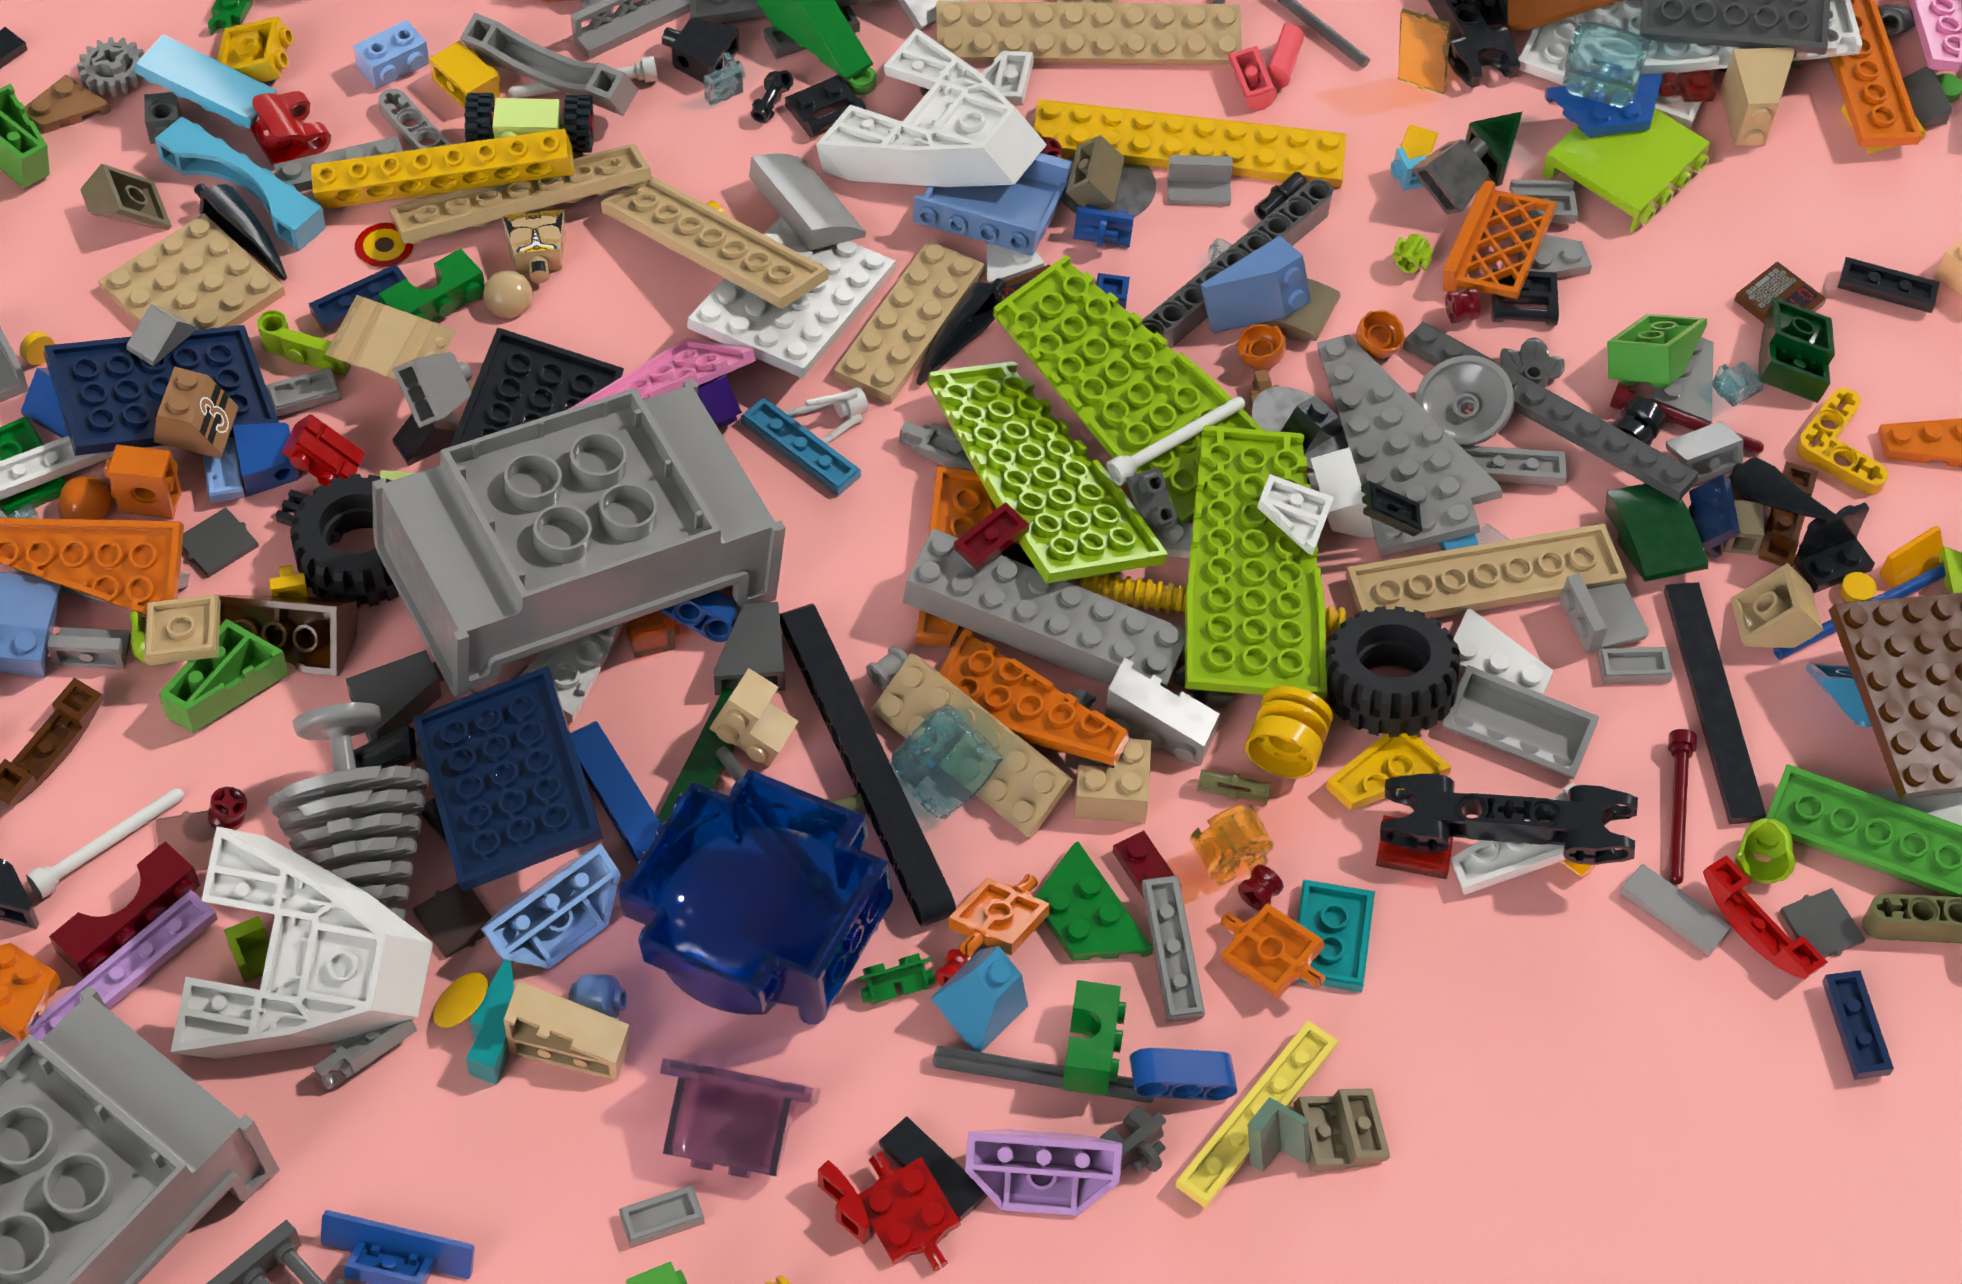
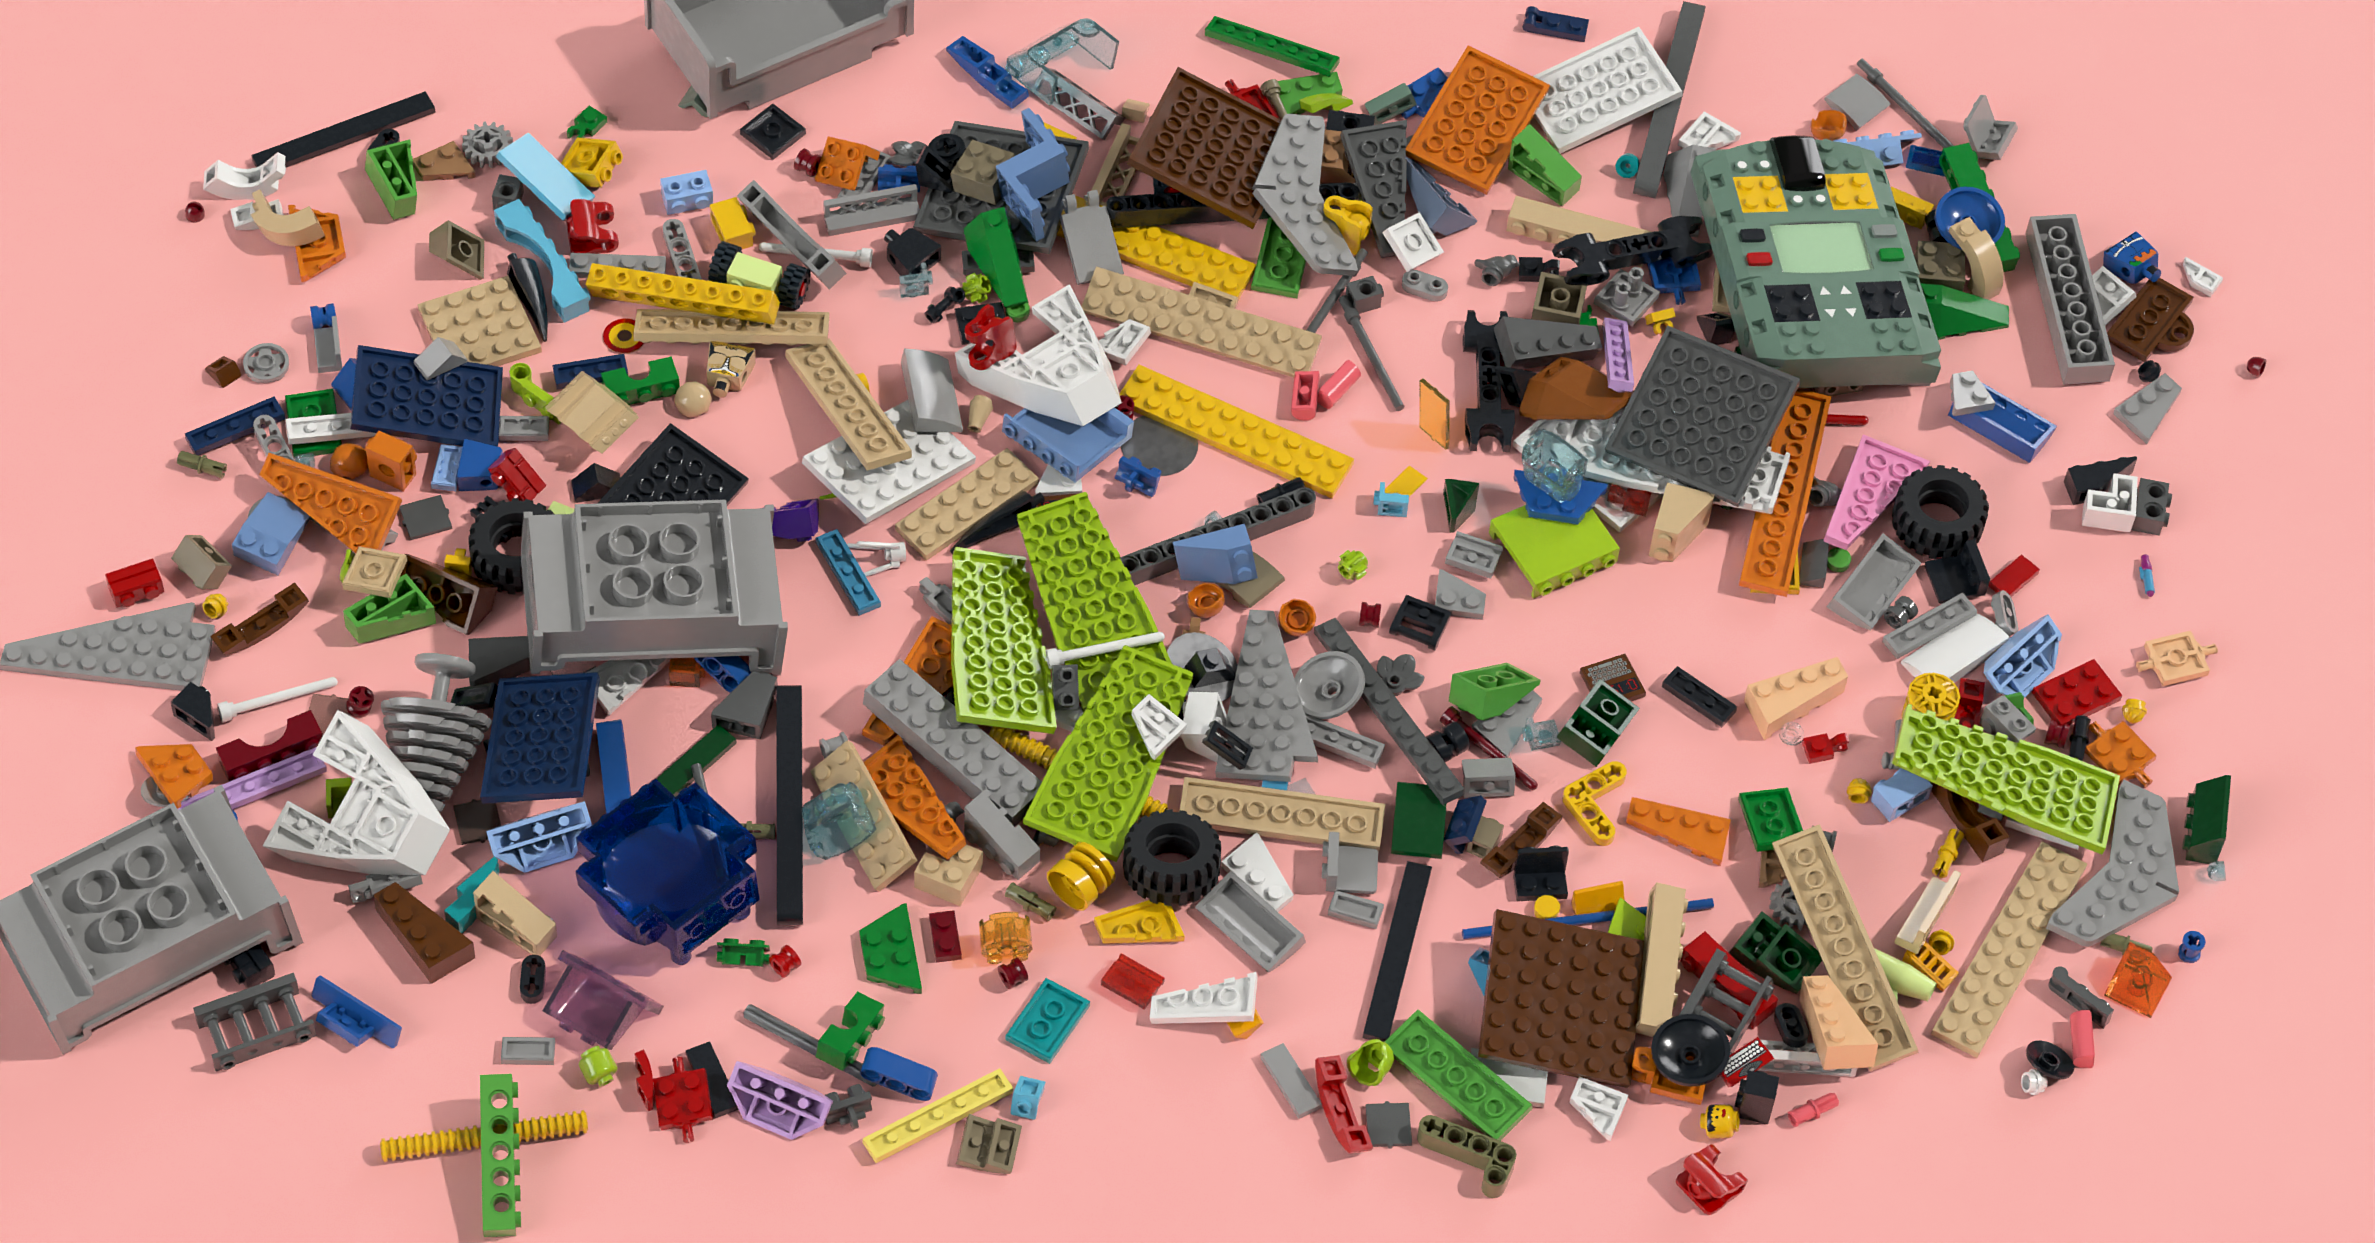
camera: 20 degrees right, 0 degrees up
(33, 347) = (357, 338): yellow tile -> none
(89, 648) = (314, 564): light grey panel -> none
(195, 414) = (440, 424): medium nougat slope -> none
(221, 1232) = (251, 967): none -> black brick
(433, 386) = (606, 453): light grey torso -> none
(446, 1099) = (424, 935): none -> reddish brown wedge
(460, 1000) = (457, 873): yellow sticker -> none
(599, 993) = (546, 899): medium blue head -> none
(632, 1109) = (537, 979): none -> black beam
(678, 364) = (783, 491): bright pink wing -> none
(752, 721) = (722, 752): tan brick -> none
(771, 1205) = (597, 1066): none -> lime head
(802, 65) = (976, 287): none -> lime gear
(864, 109) = (994, 338): none -> red piece
(873, 205) = (979, 412): none -> tan cone
(982, 997) = (791, 983): dark azure slope -> none
(991, 536) = (932, 677): dark red plate -> none
(999, 915) = (828, 933): orange plate -> none
(1095, 173) = (1148, 435): dark tan brick -> none
(1116, 285) = (1122, 525): blue tile -> none
(1173, 949) = (934, 993): light grey tile -> none
(1199, 180) = (1226, 462): light grey panel -> none
(1272, 950) = (998, 1015): orange plate -> none
(1274, 1130) = (936, 1130): sand green panel -> none
(1361, 1047) = (1027, 1097): none -> medium azure bracket
(1453, 173) = (1411, 513): flat silver torso -> none
(1472, 240) = (1405, 565): orange fence -> none
(1501, 818) = (1235, 999): black piece -> none
(1682, 745) = (1355, 975): dark red piece -> none
(1769, 487) = (1511, 813): black piece -> none
(1777, 611) = (1473, 903): tan slope -> none
(1857, 1025) = (1371, 1195): dark blue plate -> none

